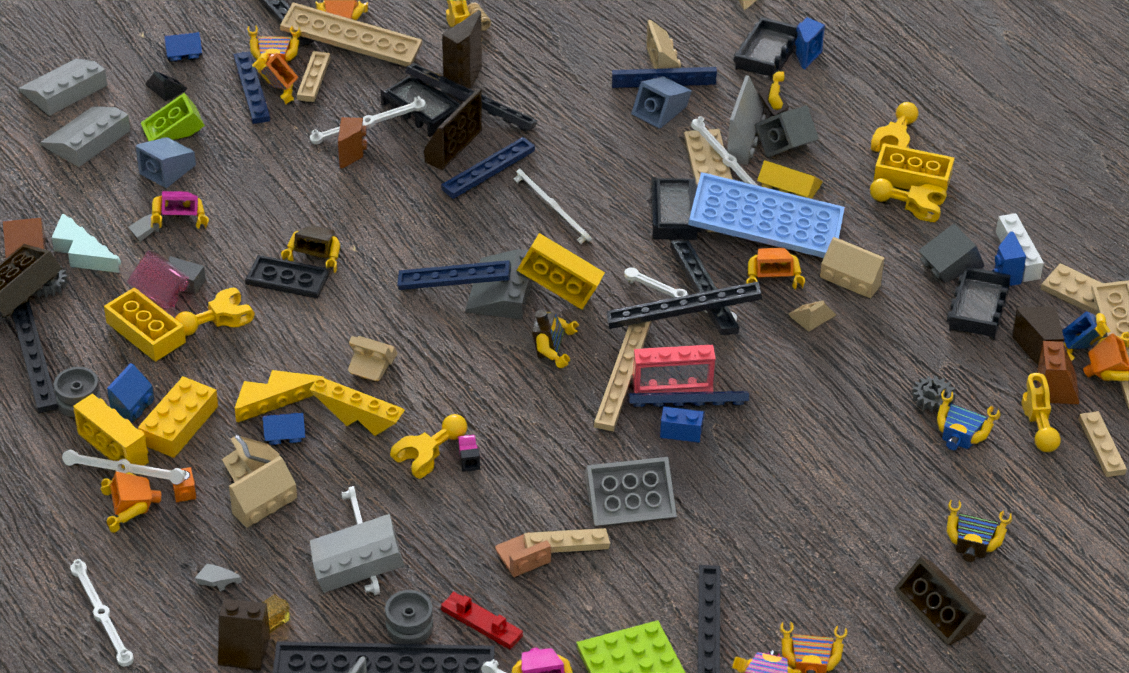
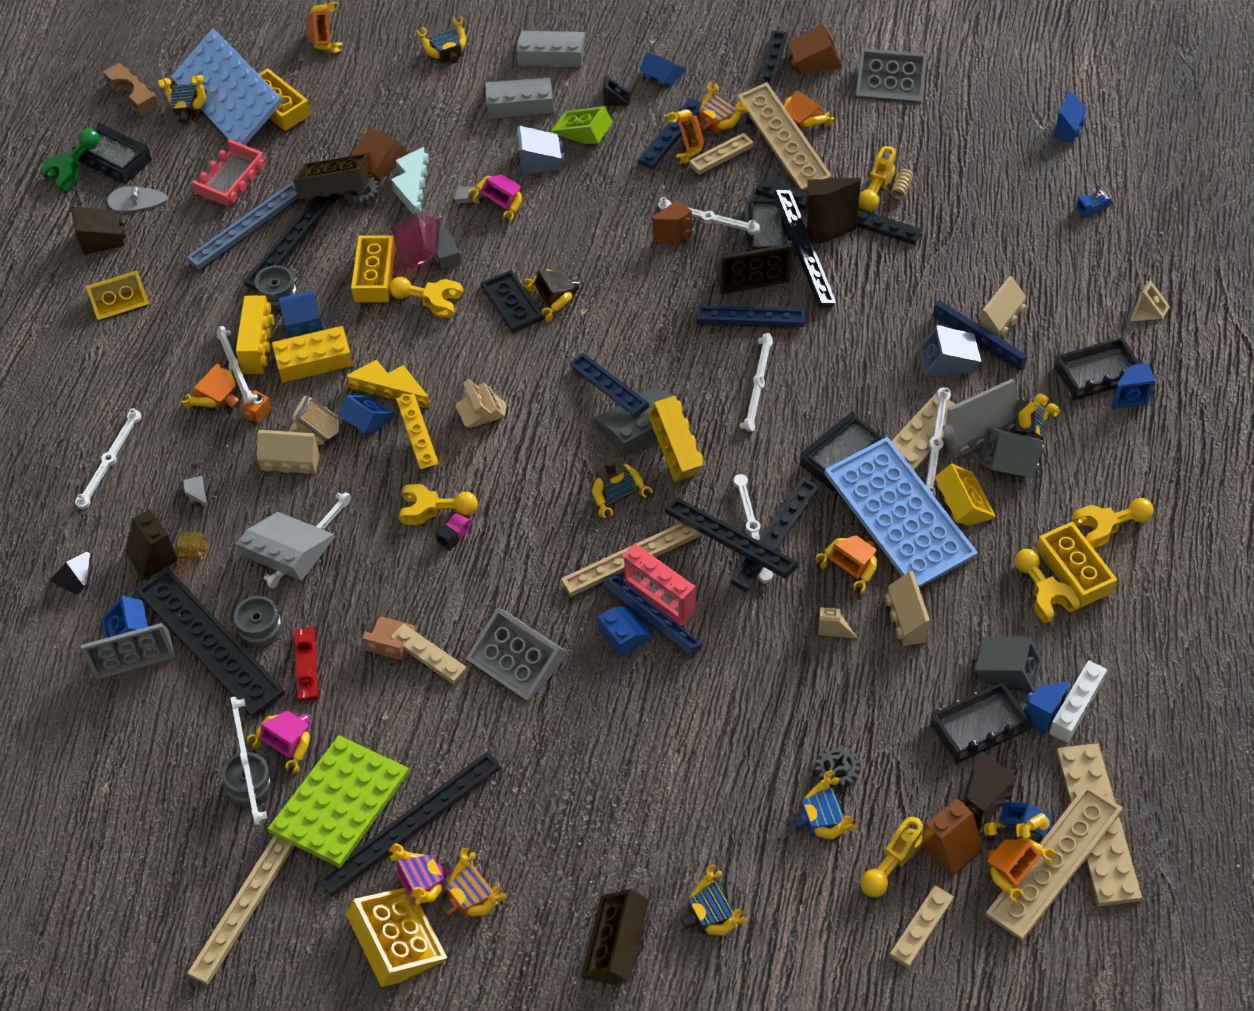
camera: 50 degrees right, 10 degrees up
(489, 54) = (866, 220): none -> black plate

